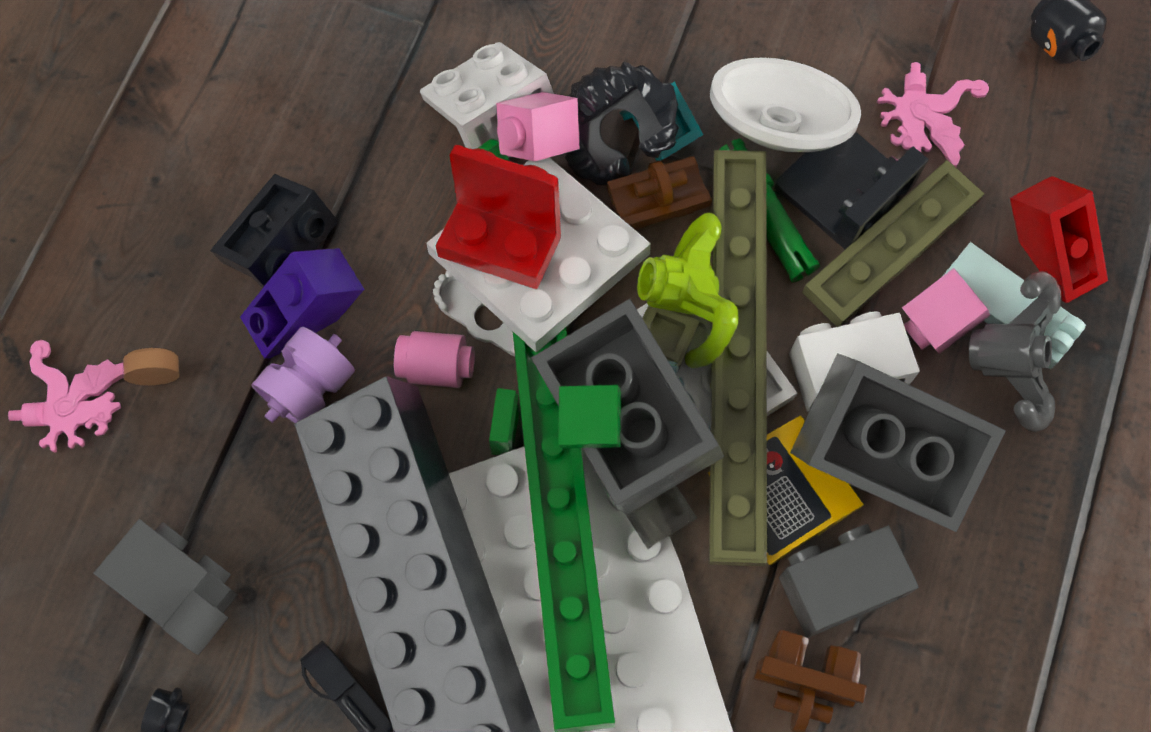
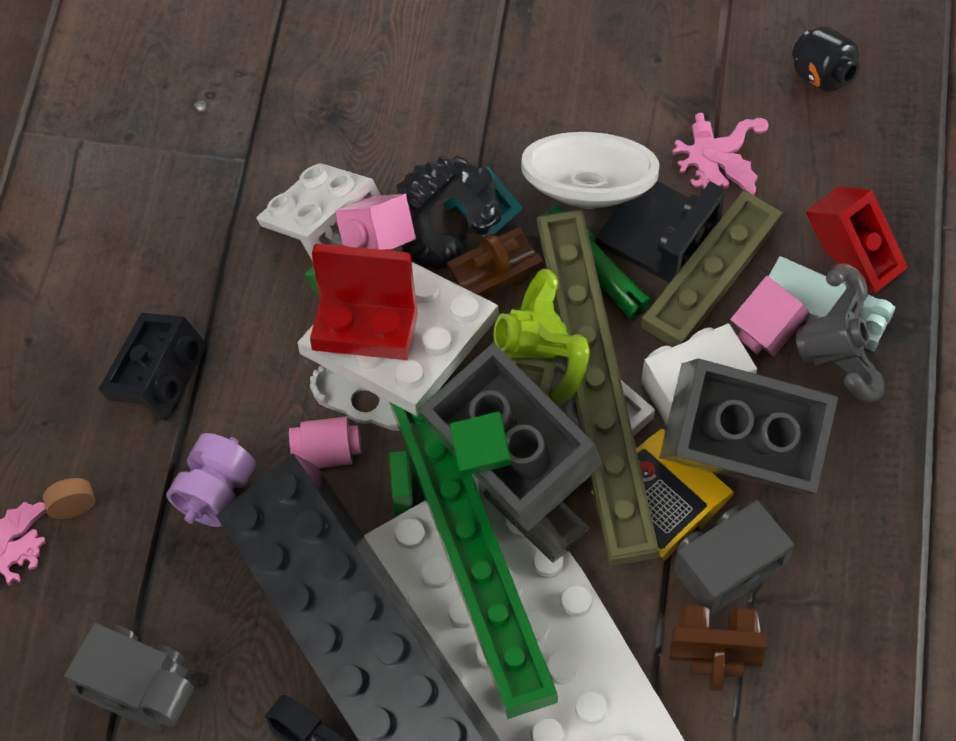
camera: 10 degrees left, 10 degrees down
(306, 292) = (197, 403): dark purple slope -> none

